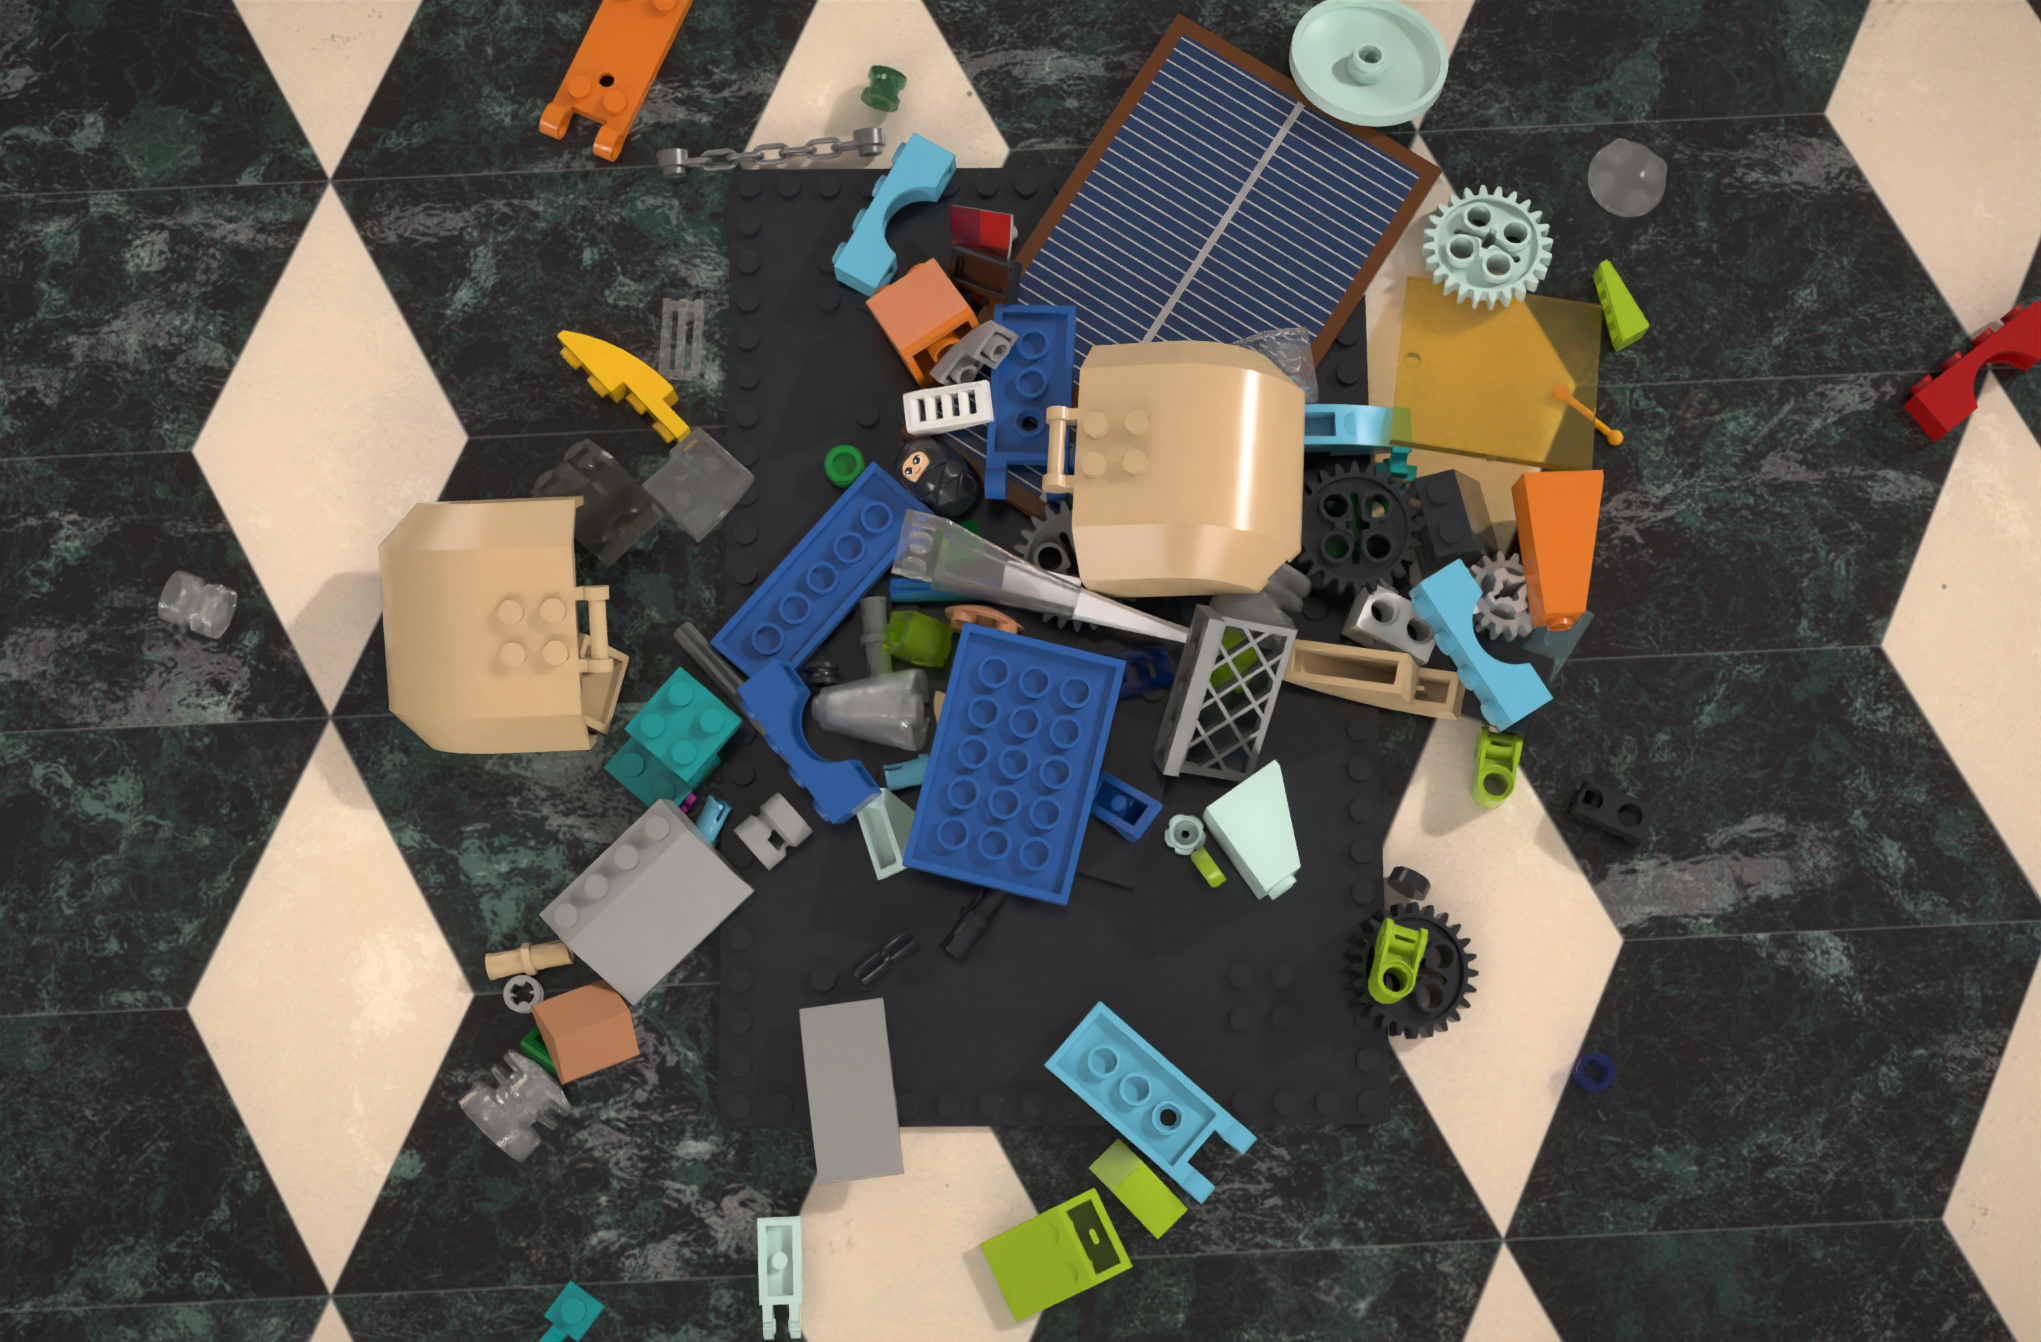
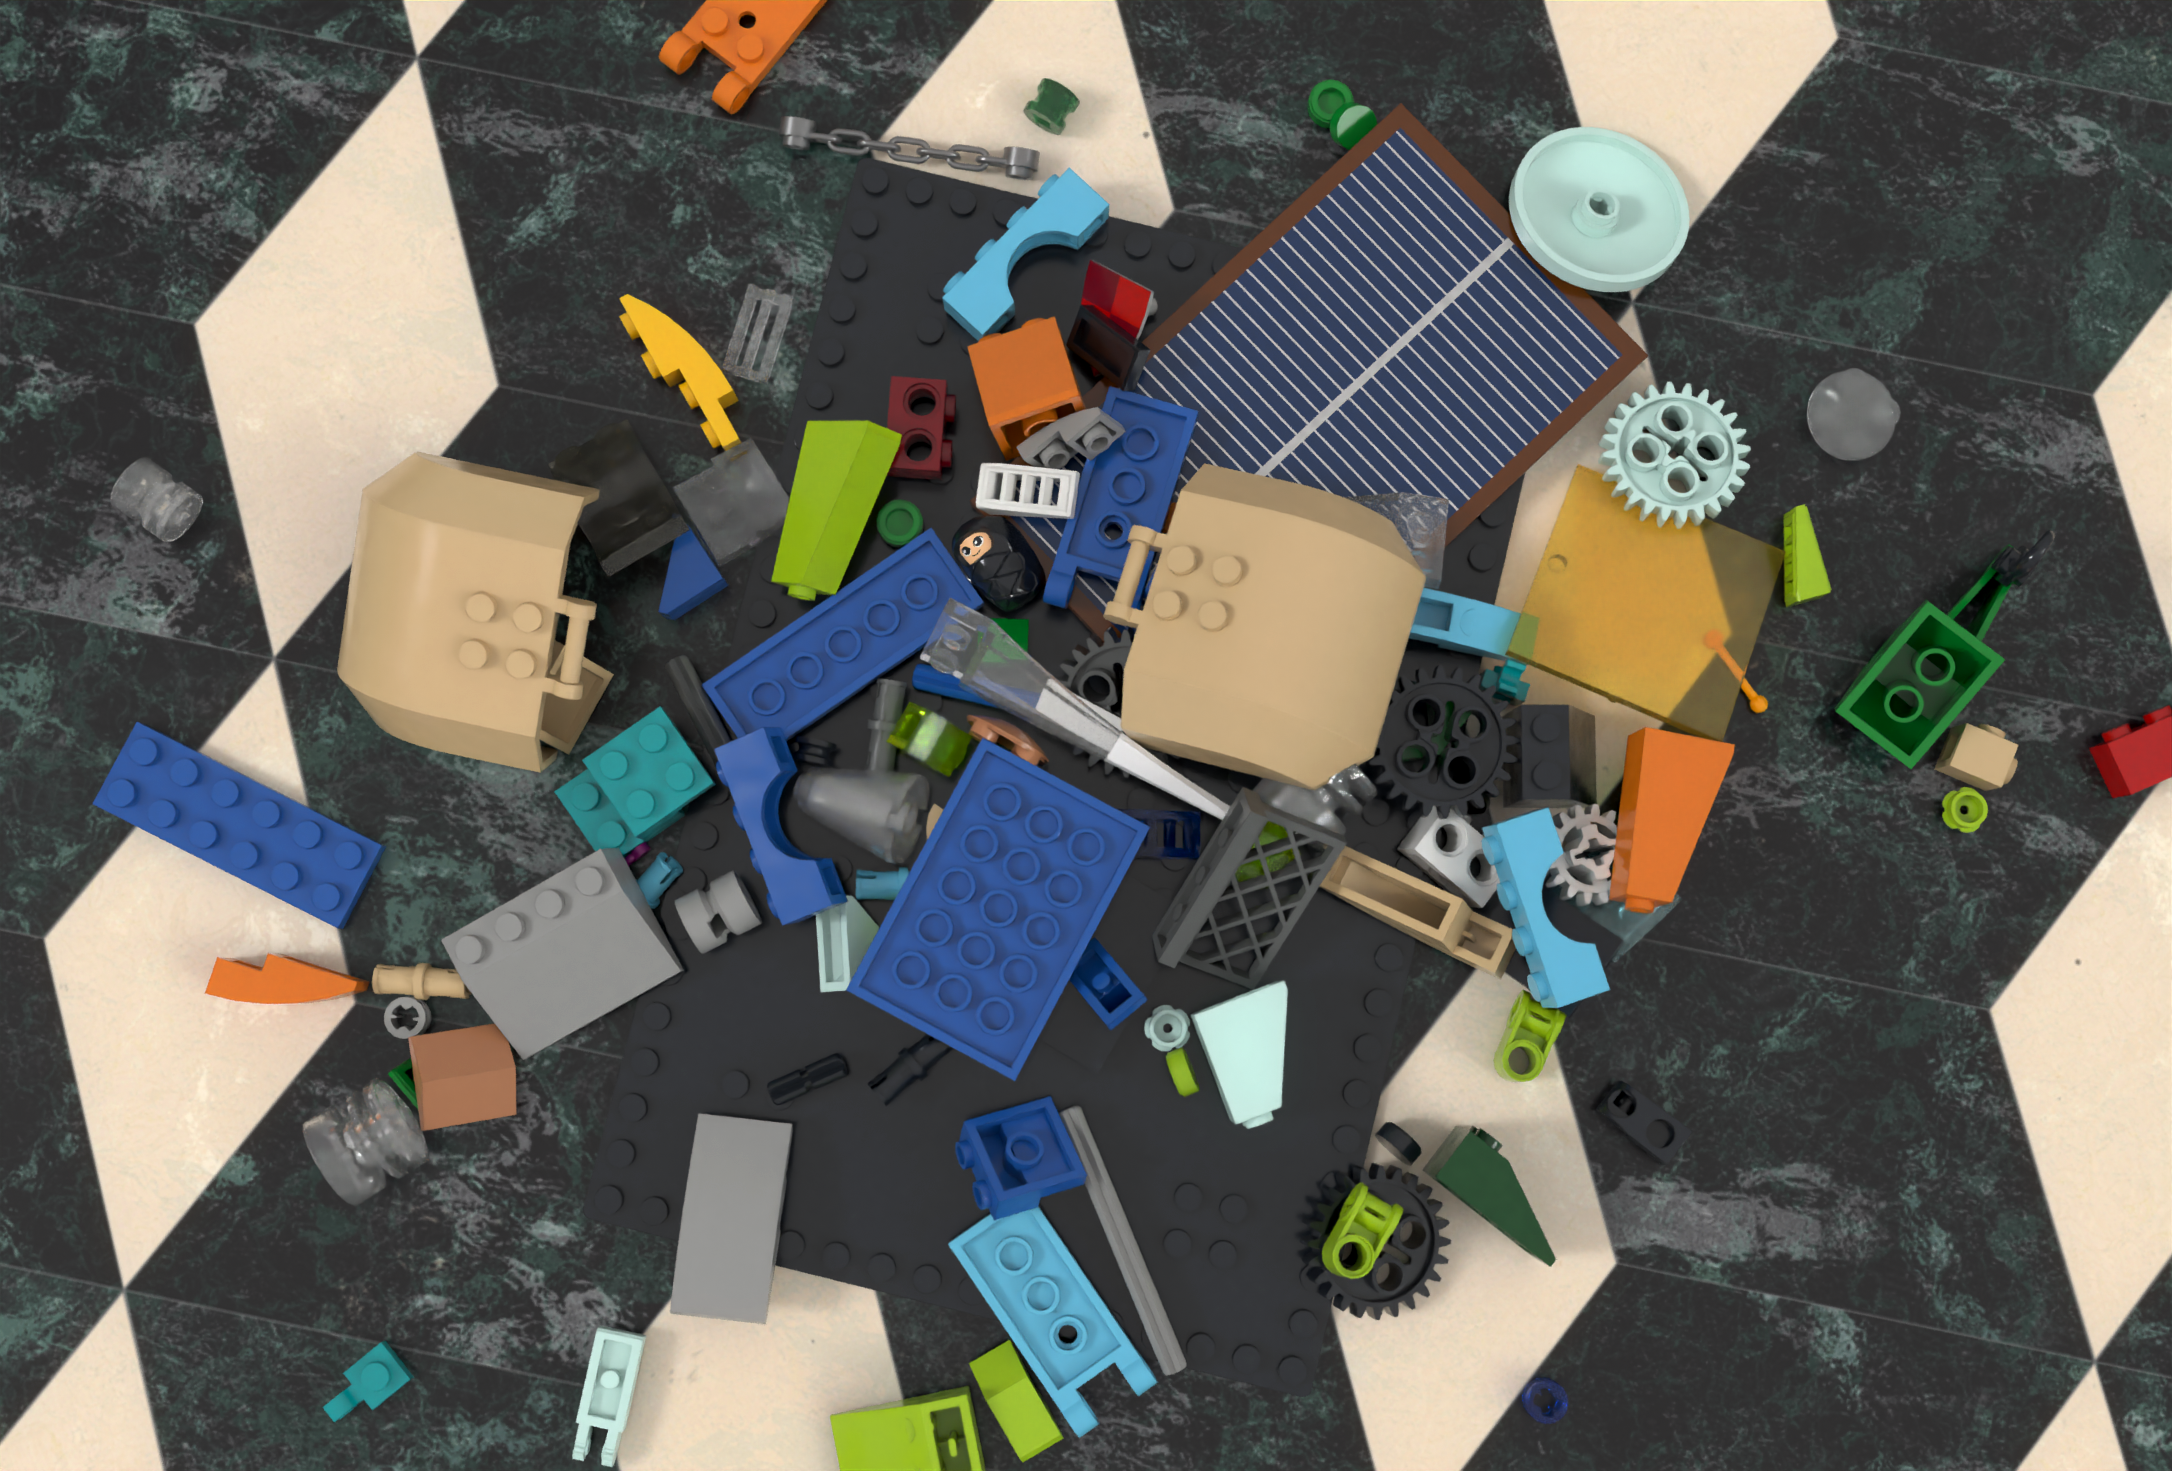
camera: 10 degrees right, 5 degrees up
(335, 866) = (239, 825): none -> blue plate
(407, 990) = (280, 981): none -> orange slope
(676, 556) = (689, 578): none -> blue slope
(782, 460) = (830, 503): none -> lime slope
(834, 382) = (918, 428): none -> dark red brick
(1086, 973) = (1018, 1157): none -> blue plate
(1119, 30) = (1326, 99): none -> green tile
(1141, 41) = (1351, 124): none -> green tile
(1193, 1025) = (1124, 1244): none -> light grey axle
(1495, 897) = (1487, 1184): none -> dark green slope
(1751, 364) = (1933, 664): none -> green slope
(1811, 434) = (1978, 756): none -> tan brick
(1819, 474) = (1975, 805): none -> lime plate

